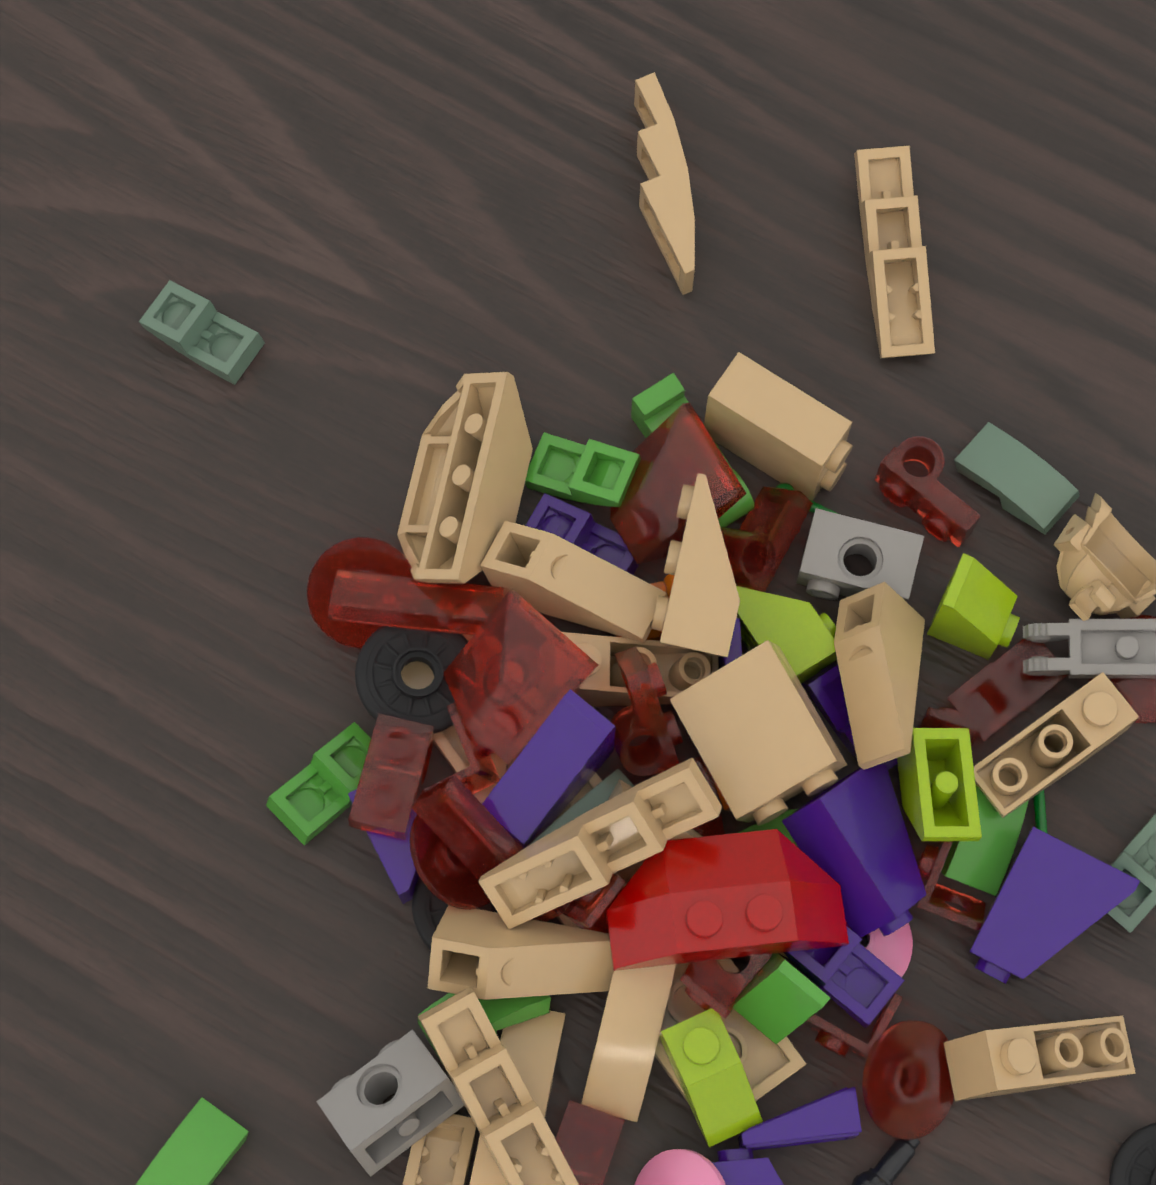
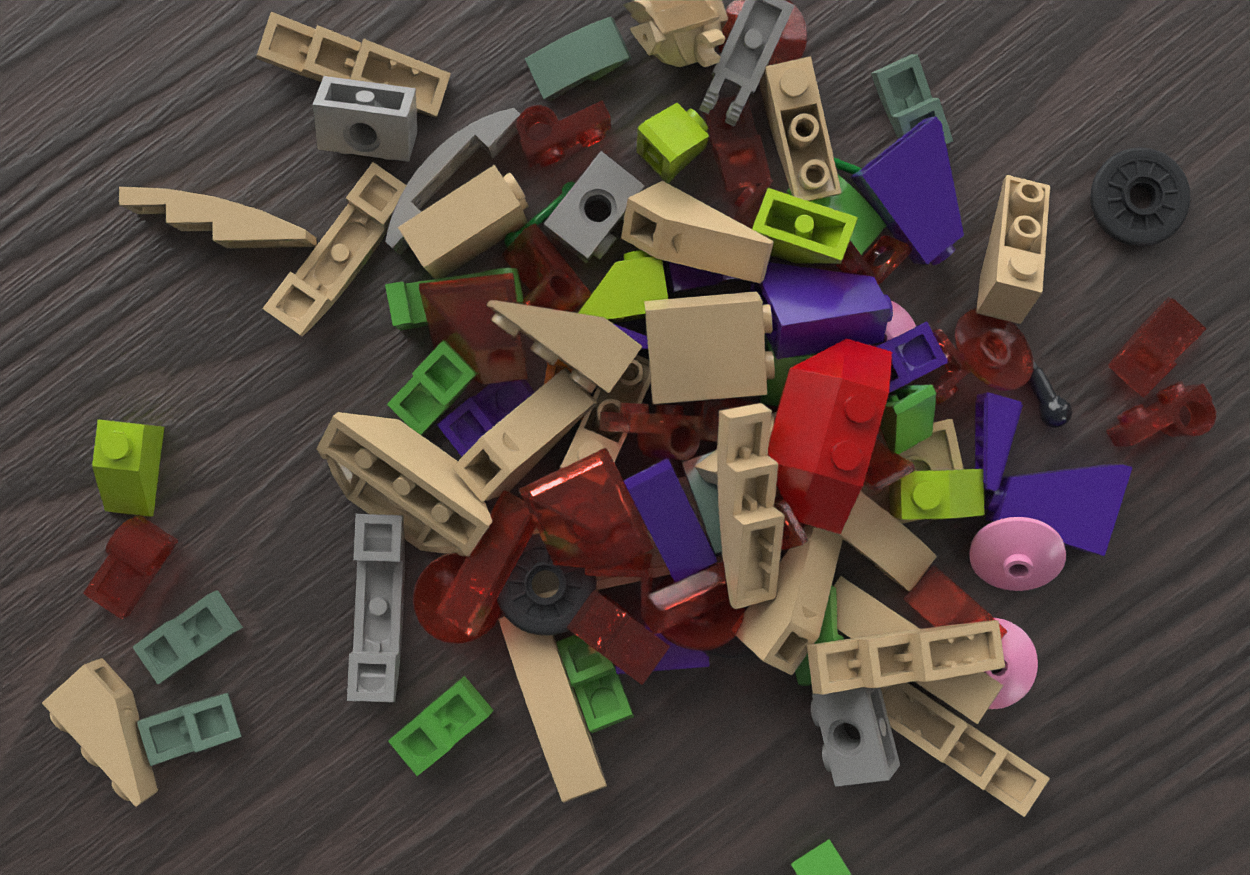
camera: 70 degrees left, 15 degrees up
(81, 282) = (103, 720): none -> tan slope
(102, 373) = (189, 728): none -> sand green slope
(209, 635) = (440, 726): none -> bright green slope
(263, 245) = (132, 562): none -> clear red plate
(274, 749) = (554, 712): none -> tan slope
(318, 514) = (378, 608): none -> light grey slope
(363, 198) = (127, 466): none -> lime slope
(687, 320) = (339, 254): none -> tan slope
(841, 386) = (489, 133): none -> light grey slope
(842, 284) = (365, 118): none -> light grey brick

